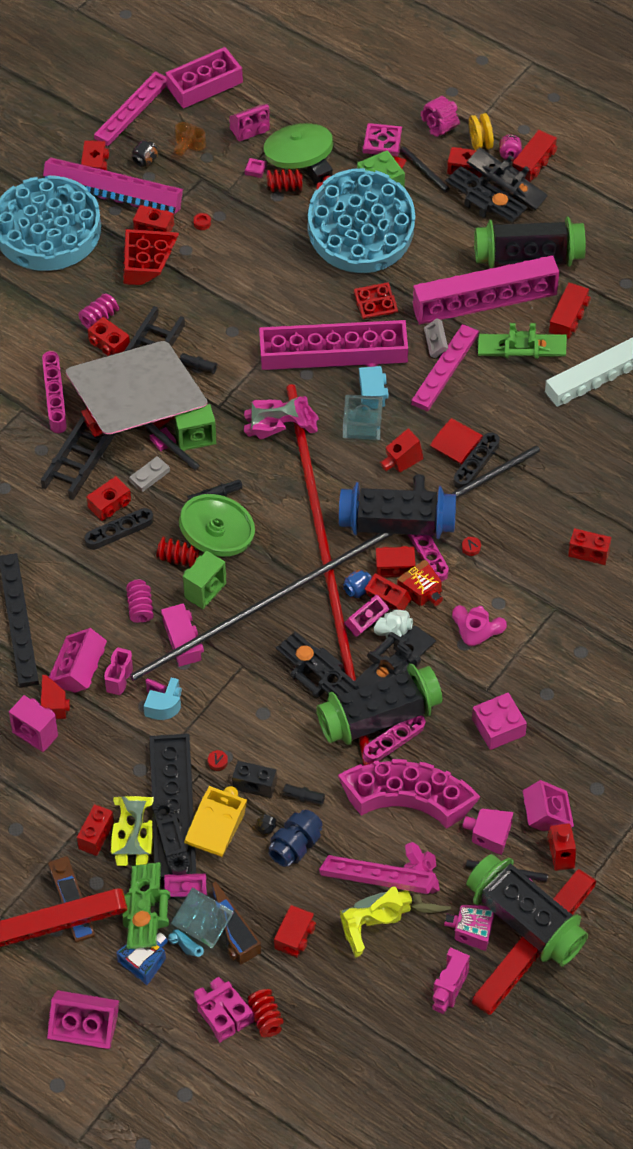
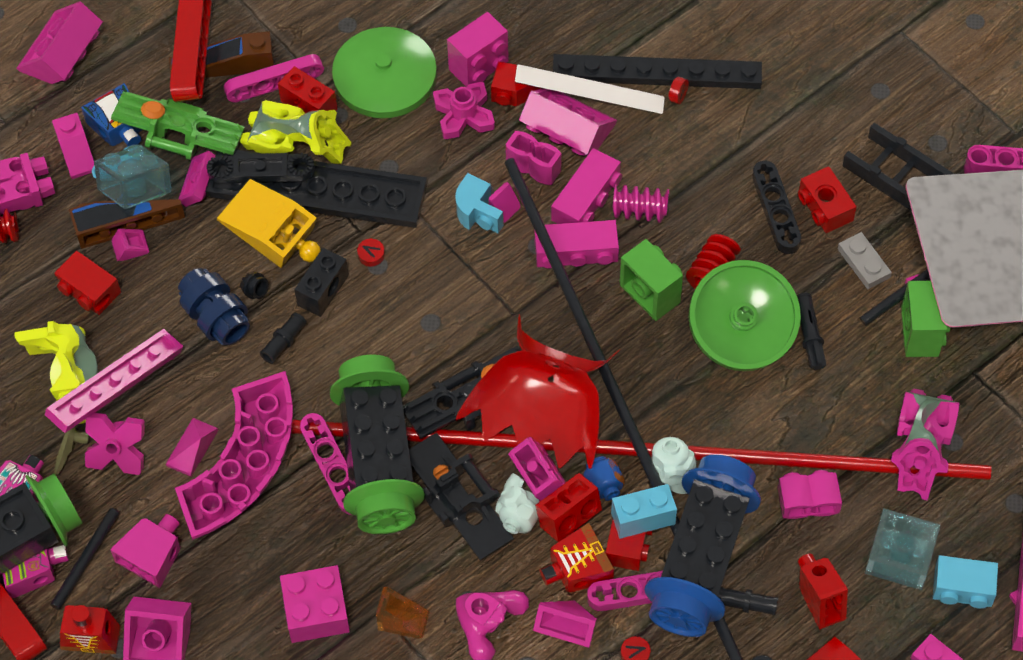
camera: 105 degrees right, 5 degrees up
(35, 599) = (678, 90): none -> red tile
(49, 651) = (589, 89): none -> white sticker
(57, 791) = (384, 72): none -> bright green dish
(82, 728) = (463, 108): none -> dark pink plant
(82, 859) = (248, 85): none -> dark pink beam
(136, 637) = (587, 189): none -> dark pink brick
(175, 978) = (74, 145): none -> dark pink slope
(253, 917) = (129, 244): none -> dark pink slope
(320, 607) = (521, 396): none -> red piece
(336, 472) = (809, 495): none -> dark pink brick
(337, 543) = (672, 461): none -> light aqua head
(385, 543) = (643, 511): none -> medium azure brick
(403, 828) = (192, 447): none -> dark pink slope
(463, 584) = (565, 621): none -> dark pink slope
(490, 675) = (400, 615): none -> clear orange slope

